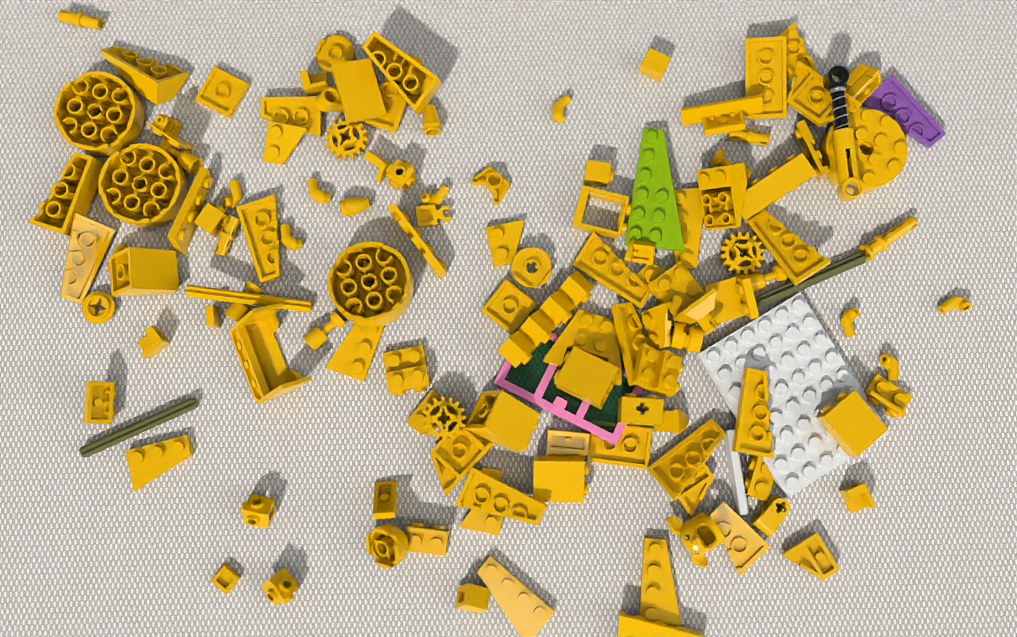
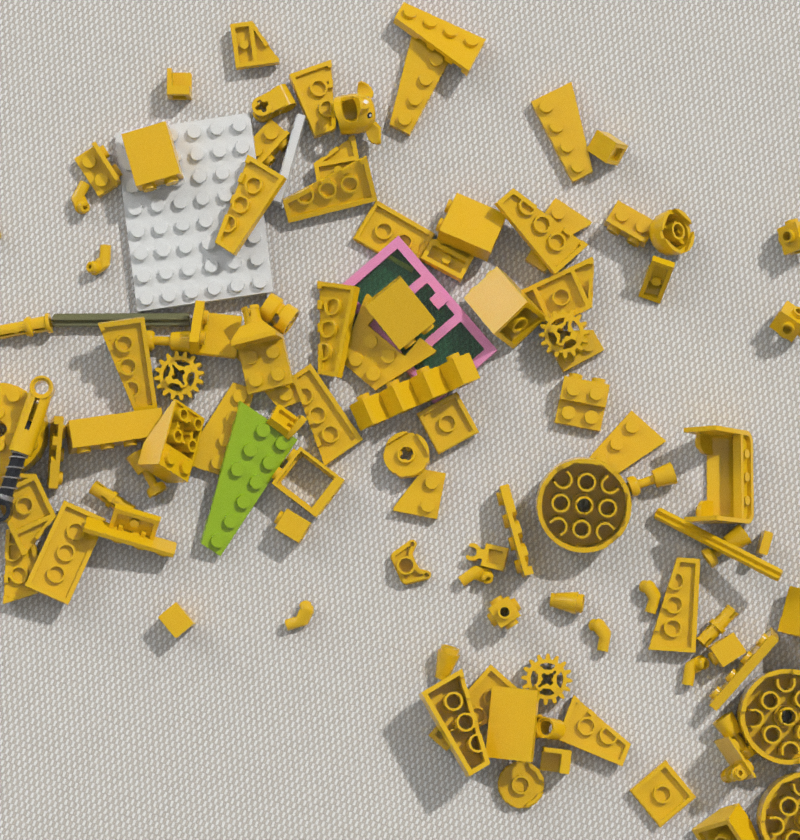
camera: 155 degrees left, 0 degrees up
(281, 141) = (618, 706): yellow wing -> none
(379, 161) = (521, 638): yellow tile -> none
(652, 410) = (351, 247): yellow brick -> none
(657, 371) = (323, 291): yellow plate -> none
(658, 325) = (302, 336): yellow wing -> none
(673, 421) = (332, 236): yellow tile -> none

